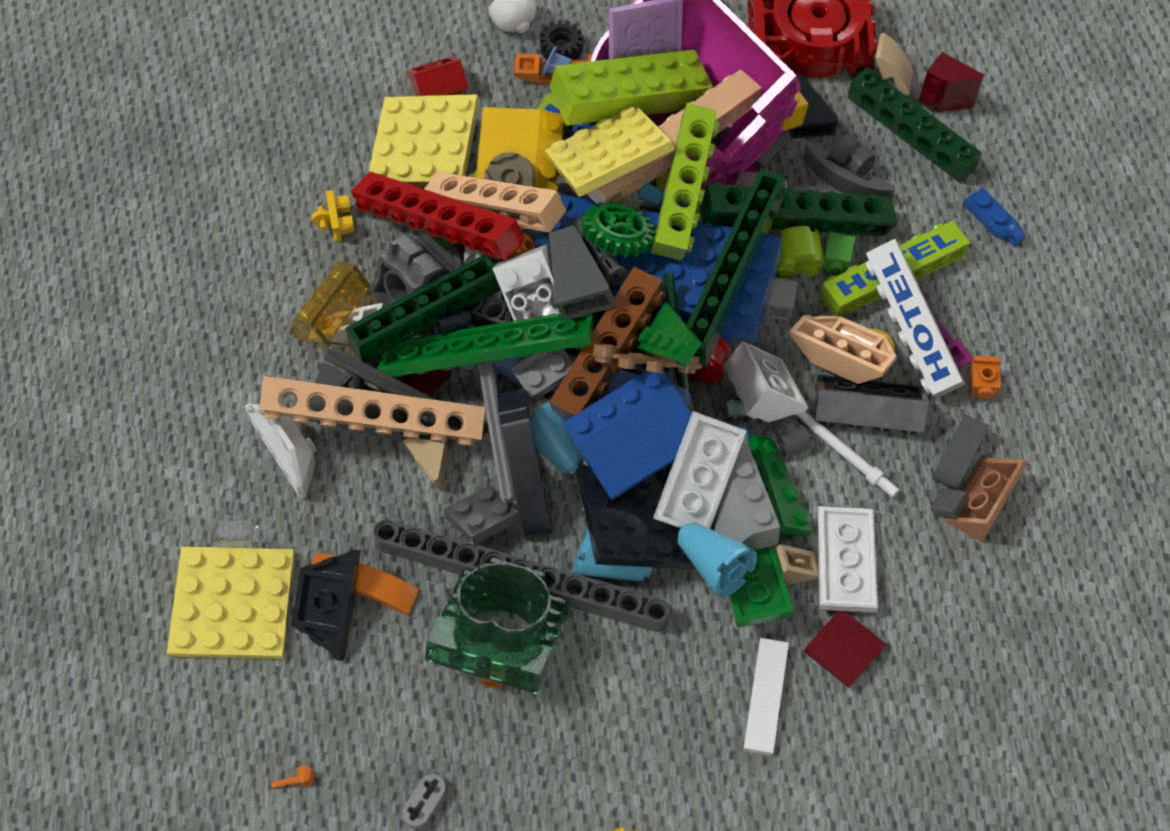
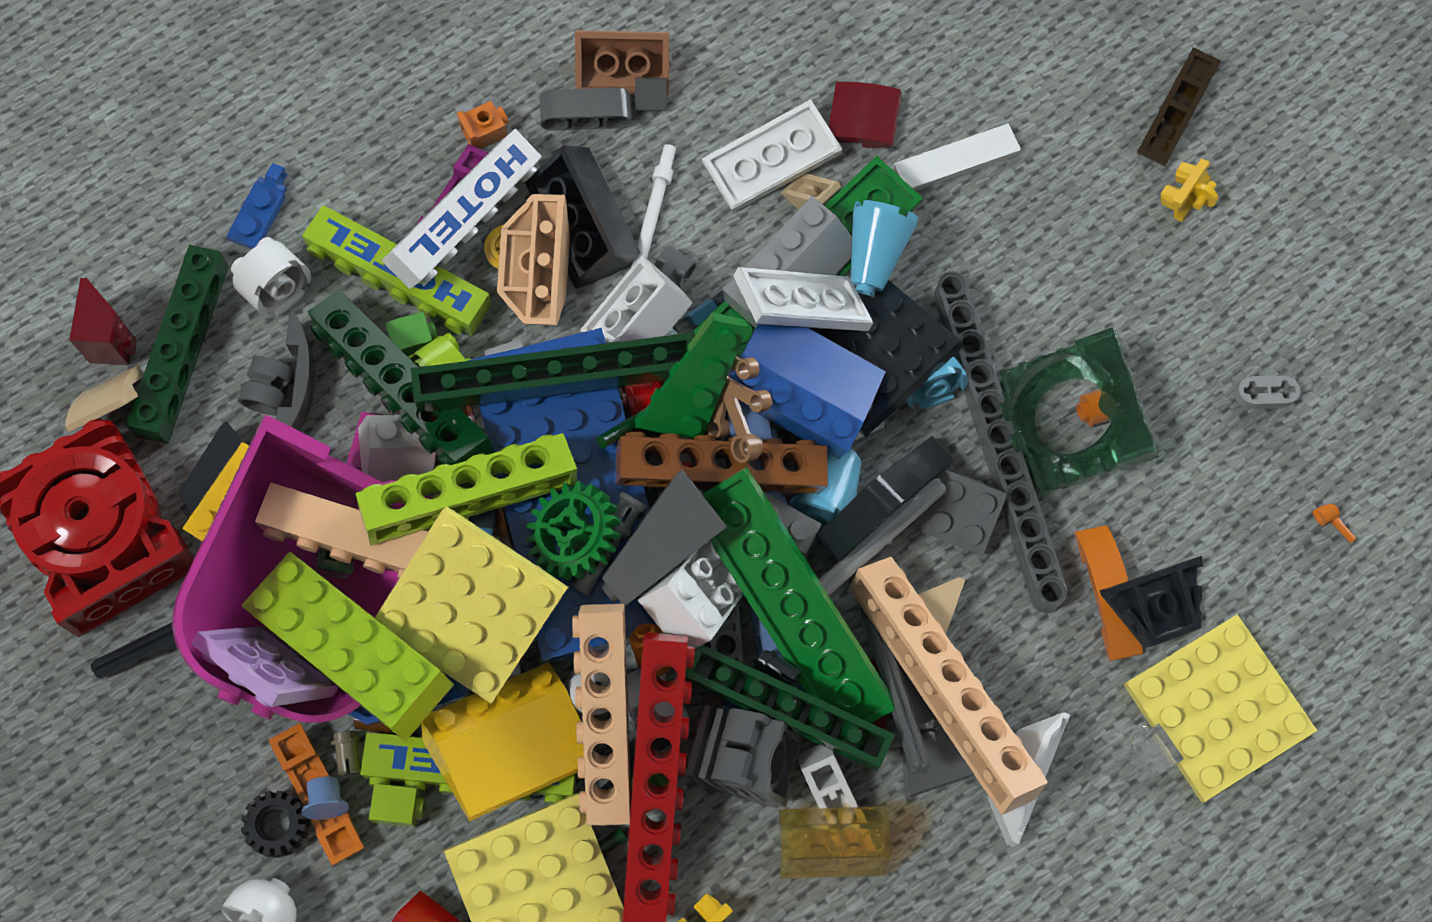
camera: 125 degrees left, 10 degrees up
(511, 169) = (546, 729): dark tan tile -> none
(527, 96) = (396, 805): none -> lime brick
(783, 494) = (759, 227): green wing -> none
(931, 190) = (270, 277): none -> white brick

